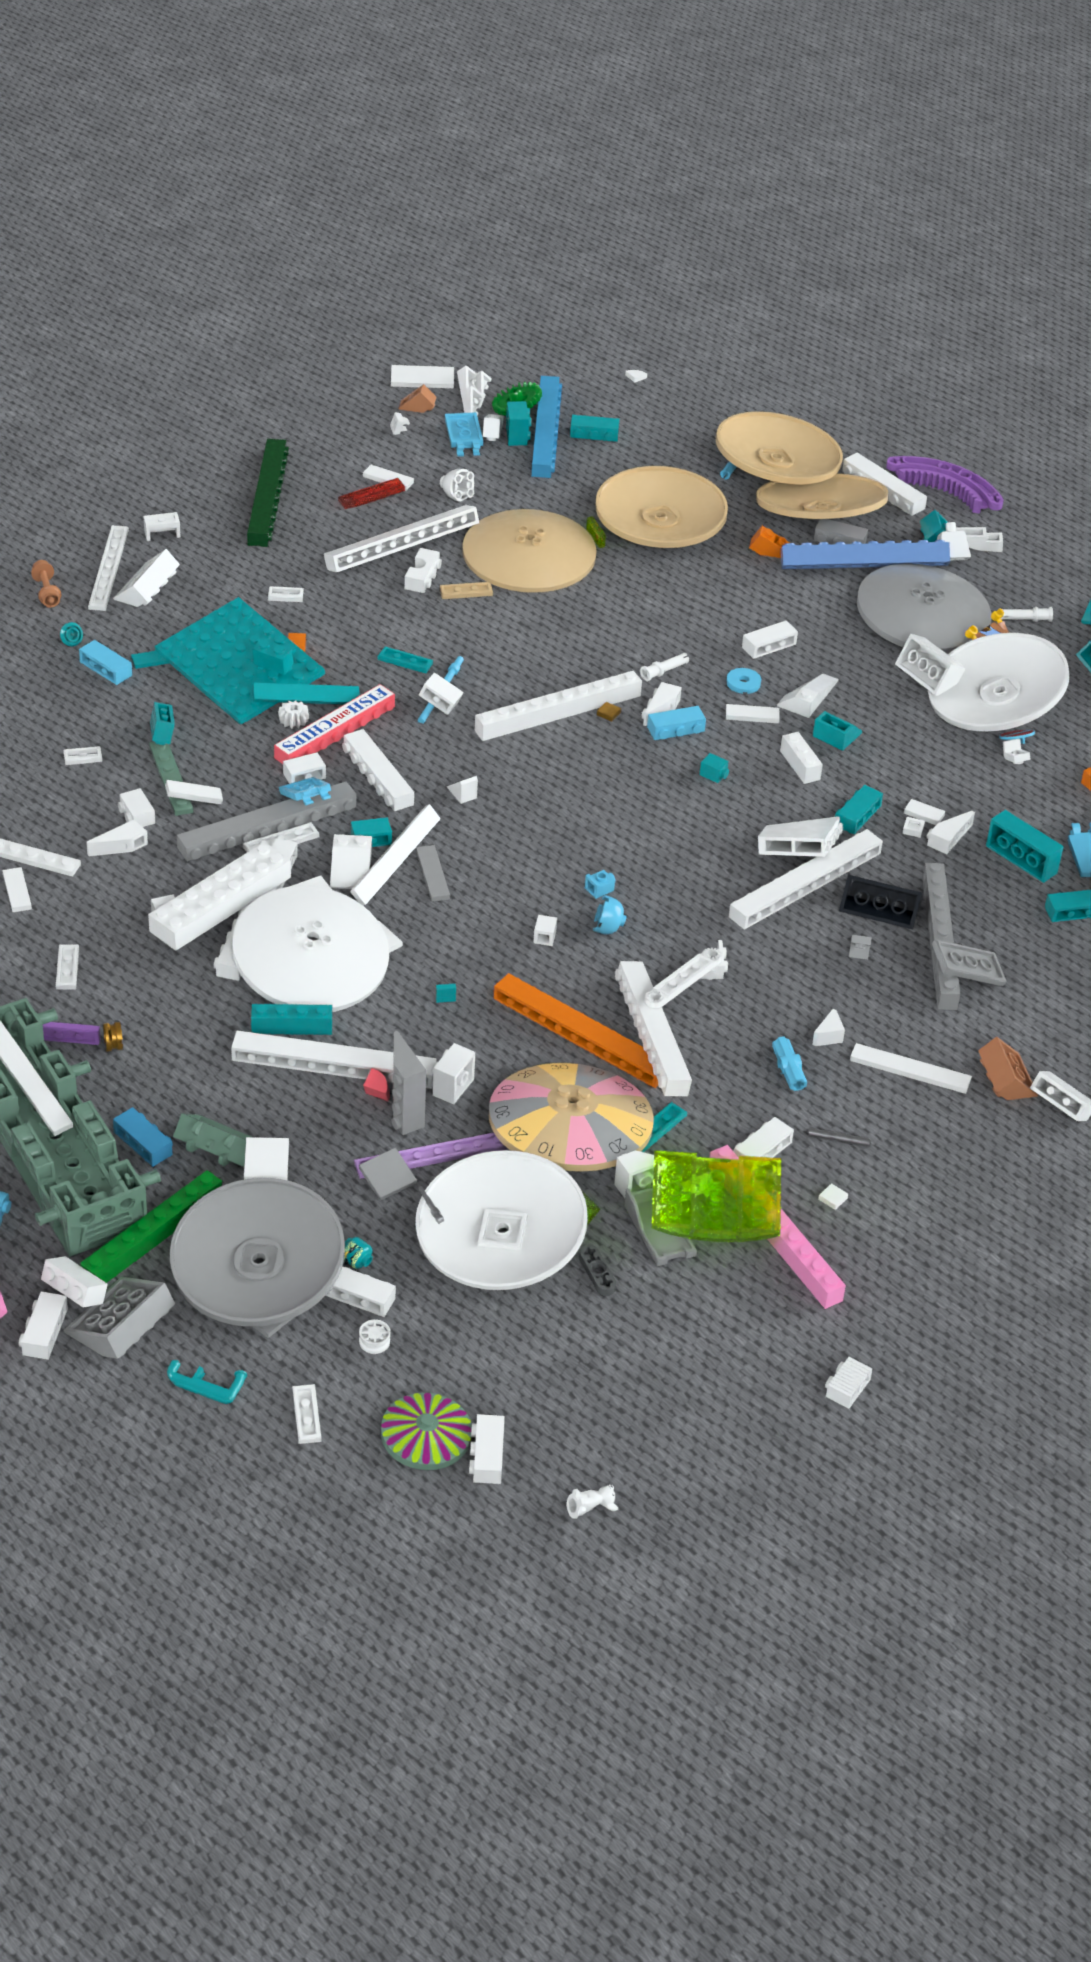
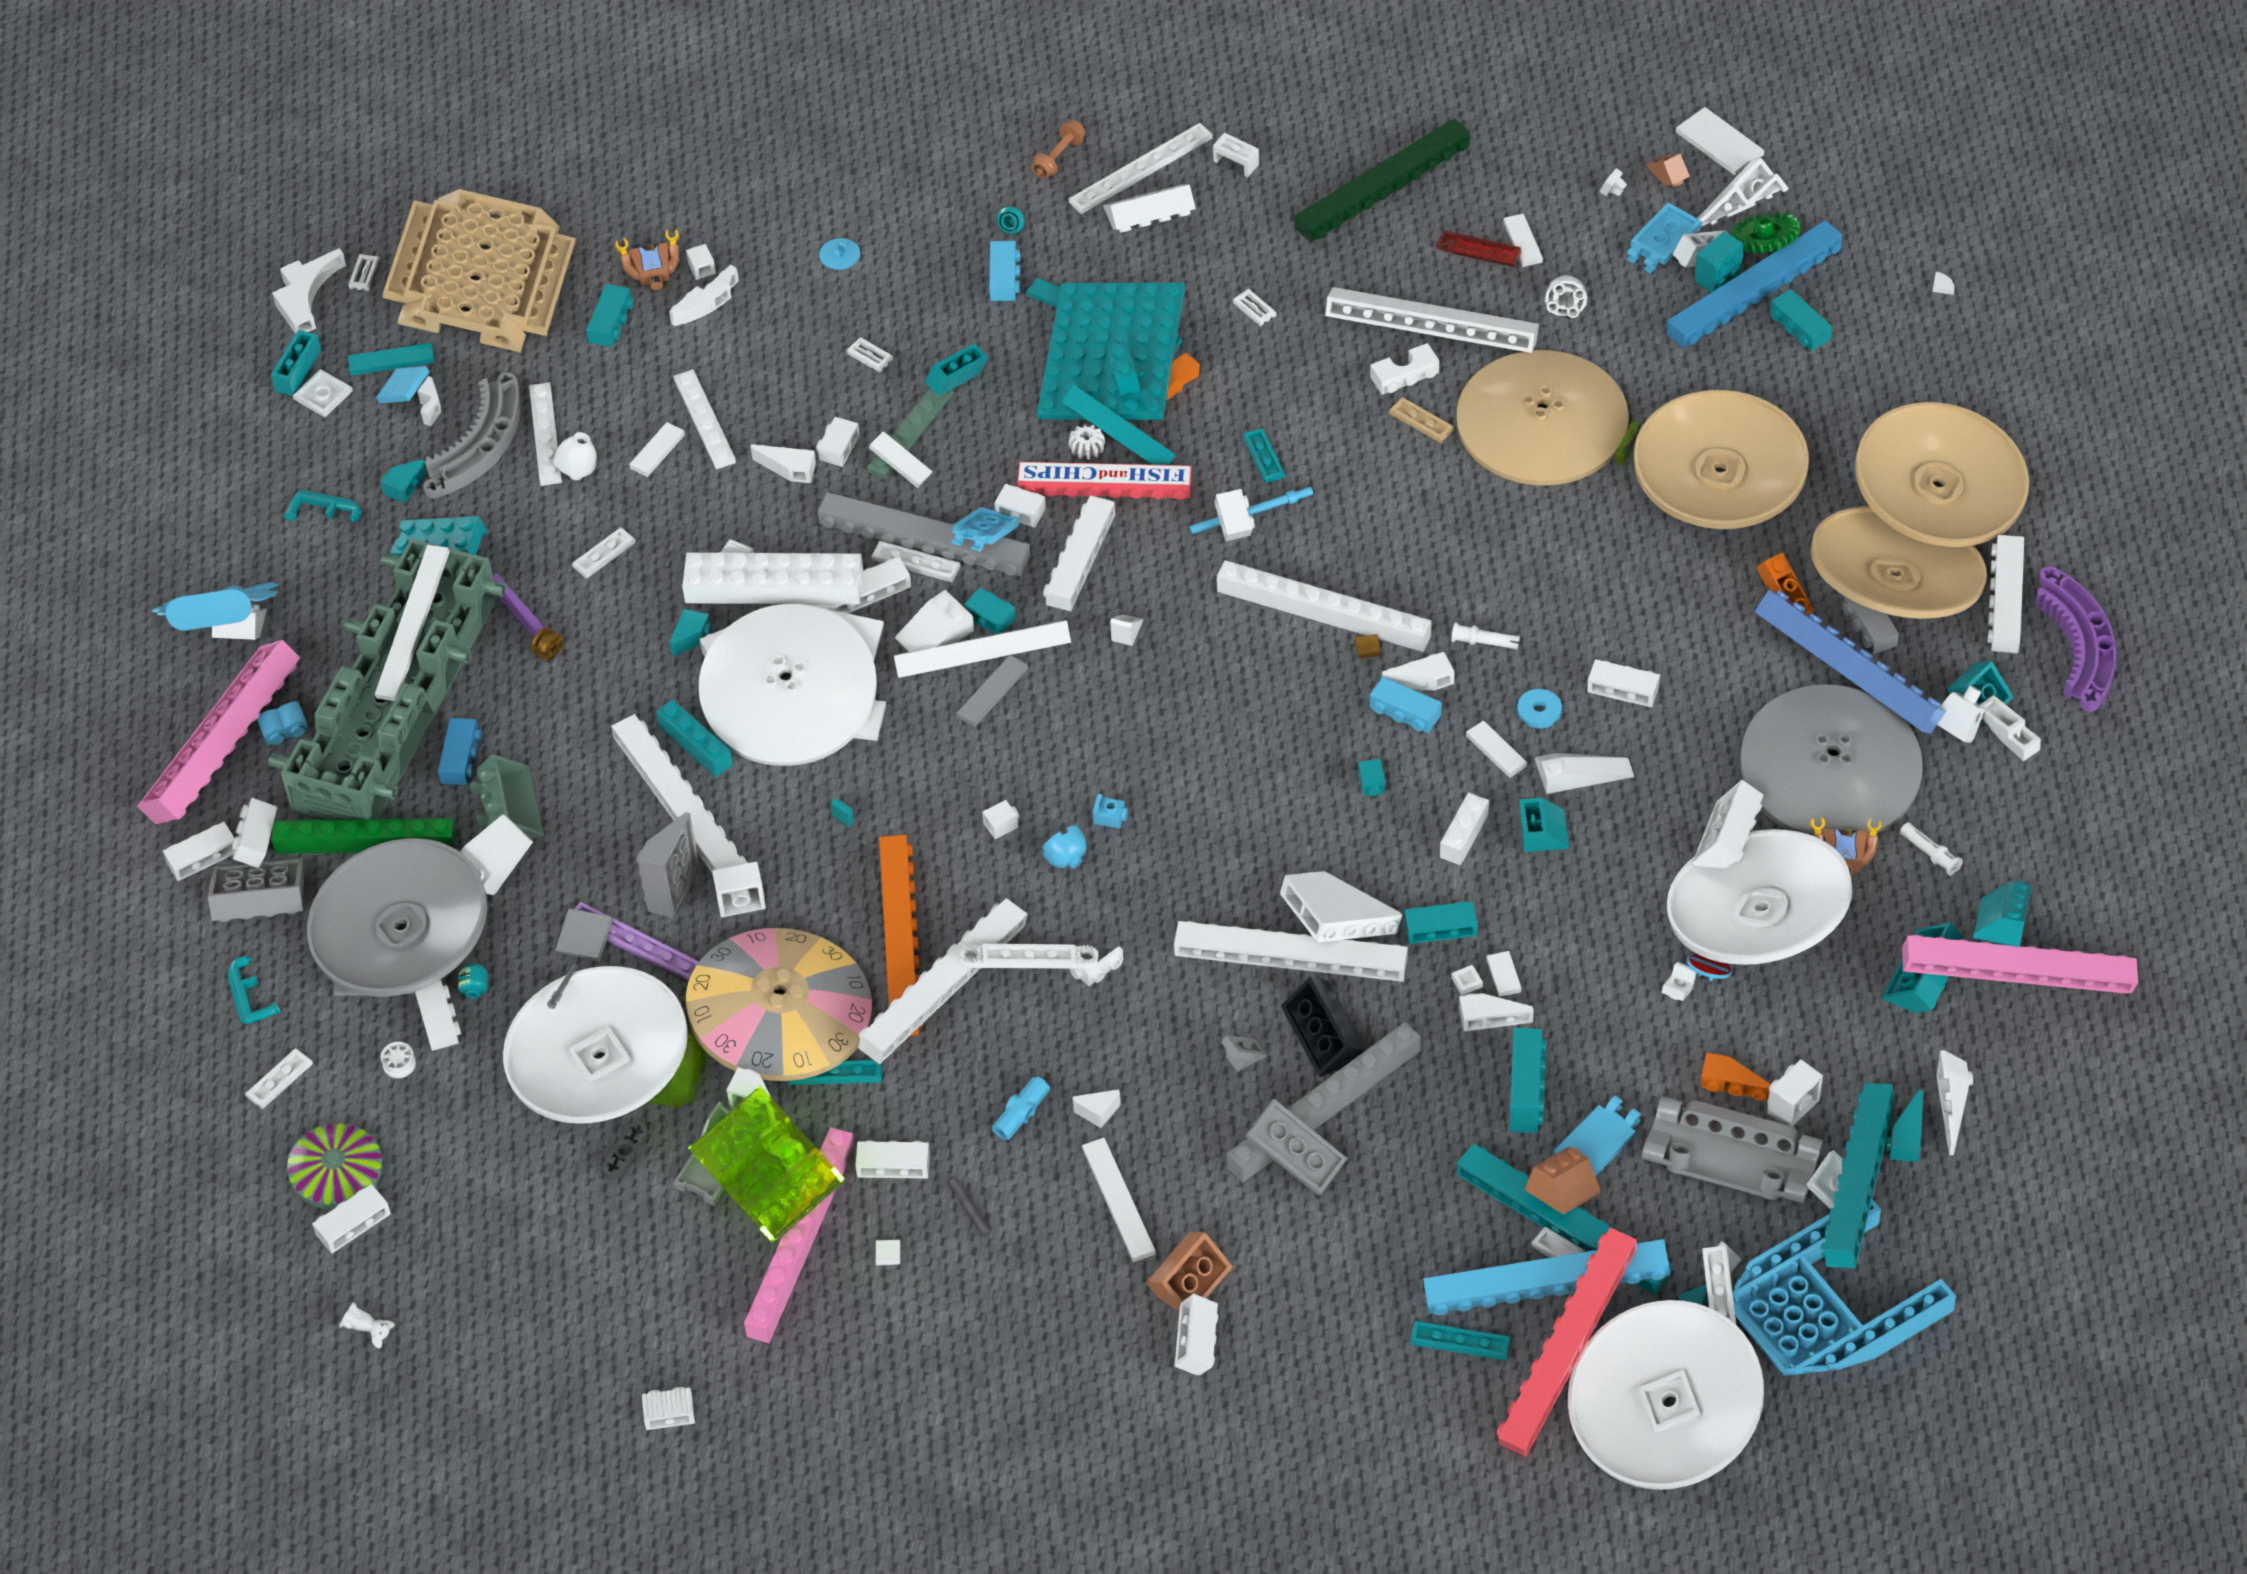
camera: 55 degrees right, 10 degrees up
(196, 966) = (689, 631): none -> teal slope

